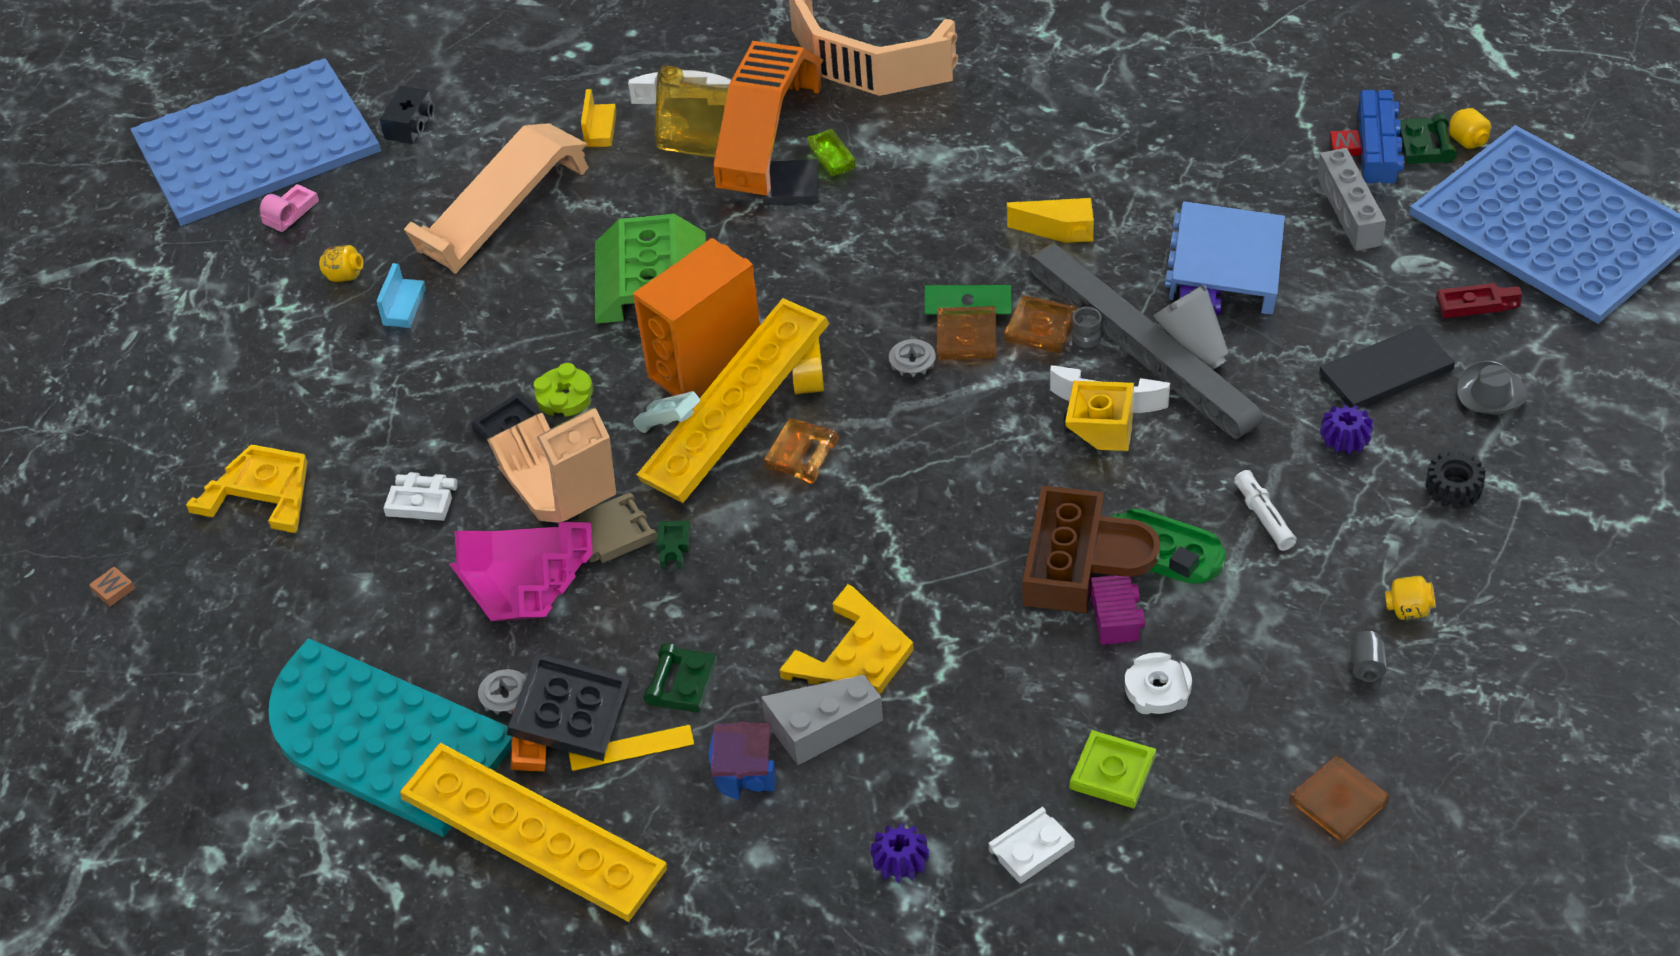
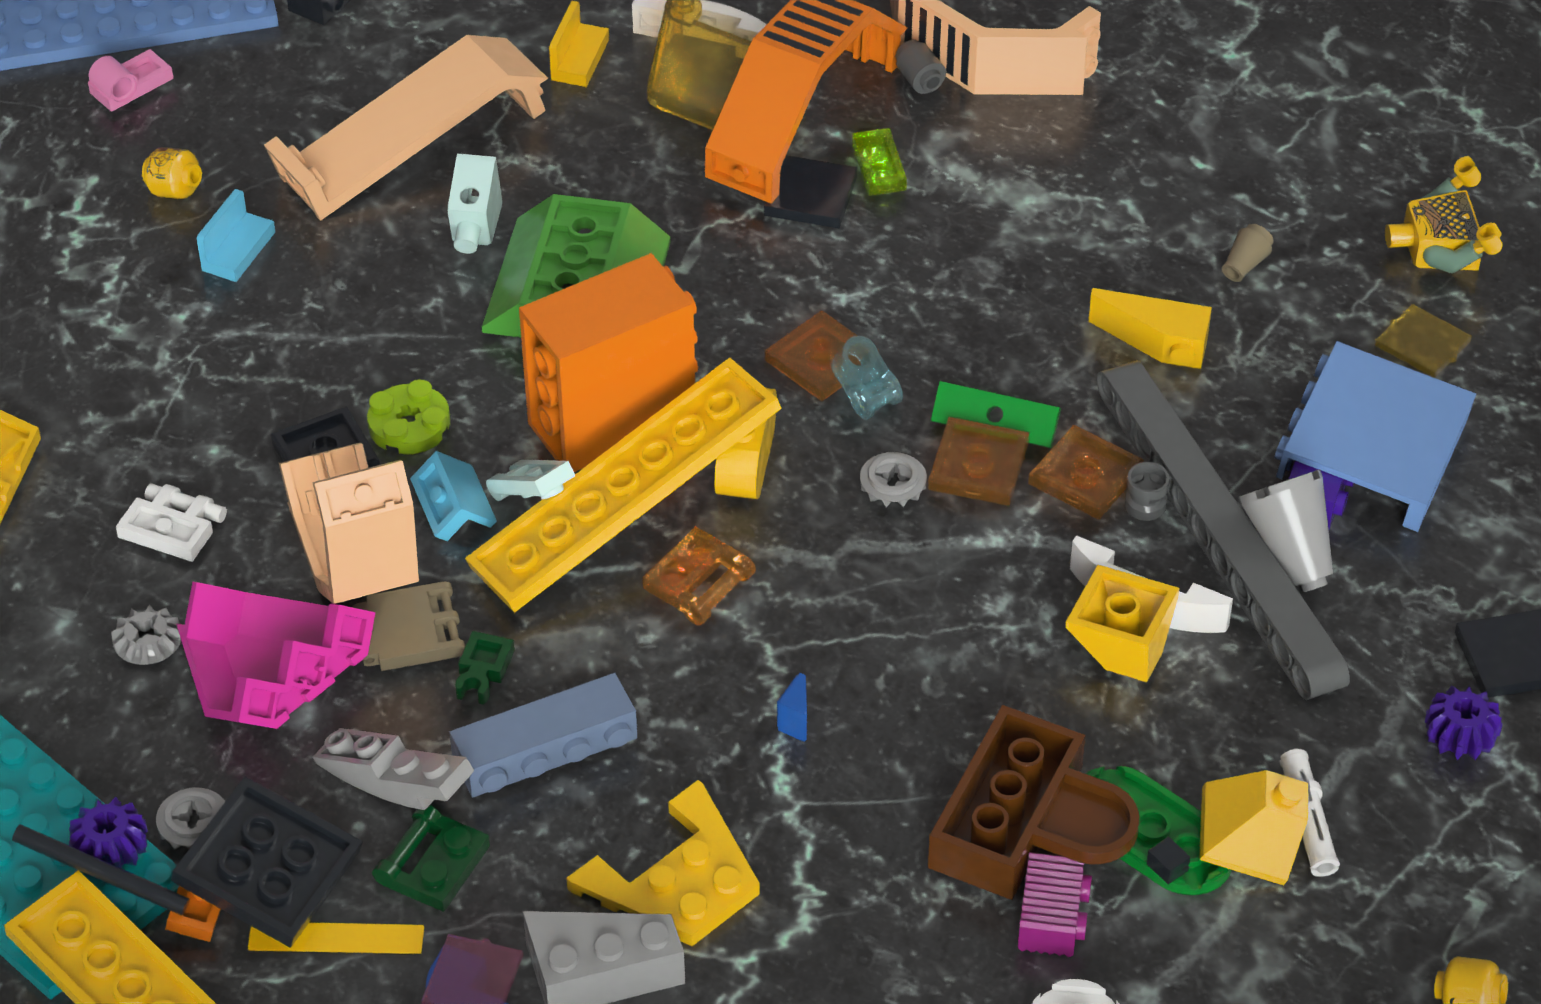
camera: 10 degrees right, 0 degrees up
(435, 584) = (149, 648): none -> light grey gear
(452, 715) = (110, 832): none -> dark purple gear
(456, 738) = (100, 869): none -> black bar
(563, 247) = (474, 217): none -> light aqua torso
(621, 435) = (451, 495): none -> medium azure panel
(635, 627) = (389, 770): none -> light grey slope
(732, 578) = (545, 734): none -> sand blue brick
(835, 287) = (808, 354): none -> clear orange plate
(838, 84) = (920, 66): none -> dark grey brick
(873, 295) = (866, 382): none -> clear light blue piece
(898, 523) = (793, 709): none -> blue slope
(1100, 156) = (1248, 250): none -> dark tan cone
(1225, 115) = (1444, 227): none -> torso
(1233, 524) = (1254, 823): none -> yellow slope
(1234, 190) = (1423, 340): none -> clear yellow piece

